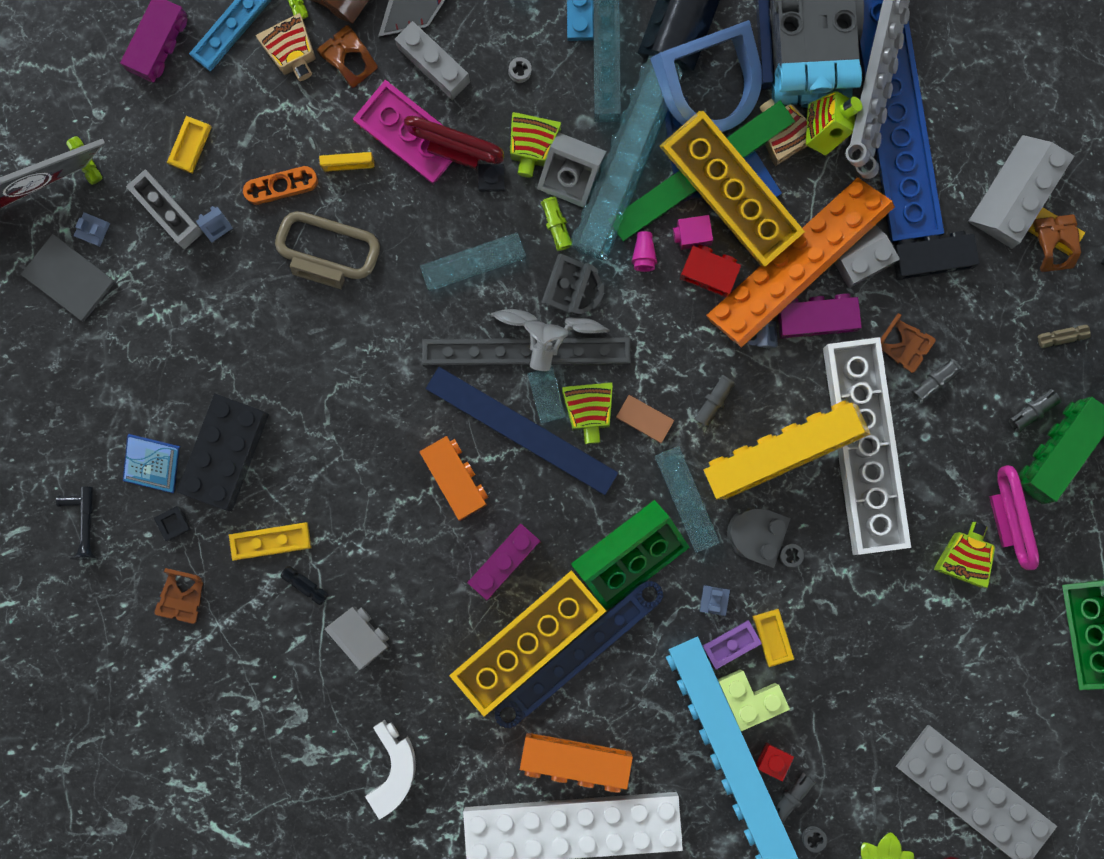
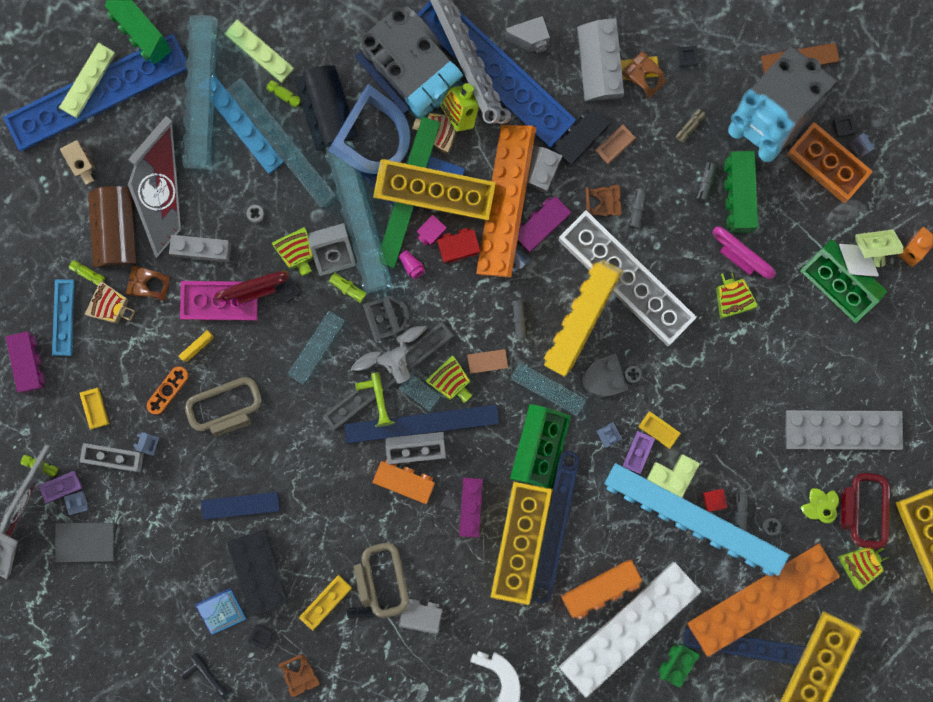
camera: 35 degrees left, 0 degrees up
(88, 199) = (60, 487): none -> medium lavender plate
(261, 367) = (240, 505): none -> dark blue tile
(327, 555) = (366, 584): none -> dark tan bar
(494, 451) = (415, 448): none -> light grey brick
(507, 349) = (376, 383): none -> lime piece
(964, 102) = (529, 35): none -> light grey slope
(965, 293) = (615, 144): none -> nougat tile

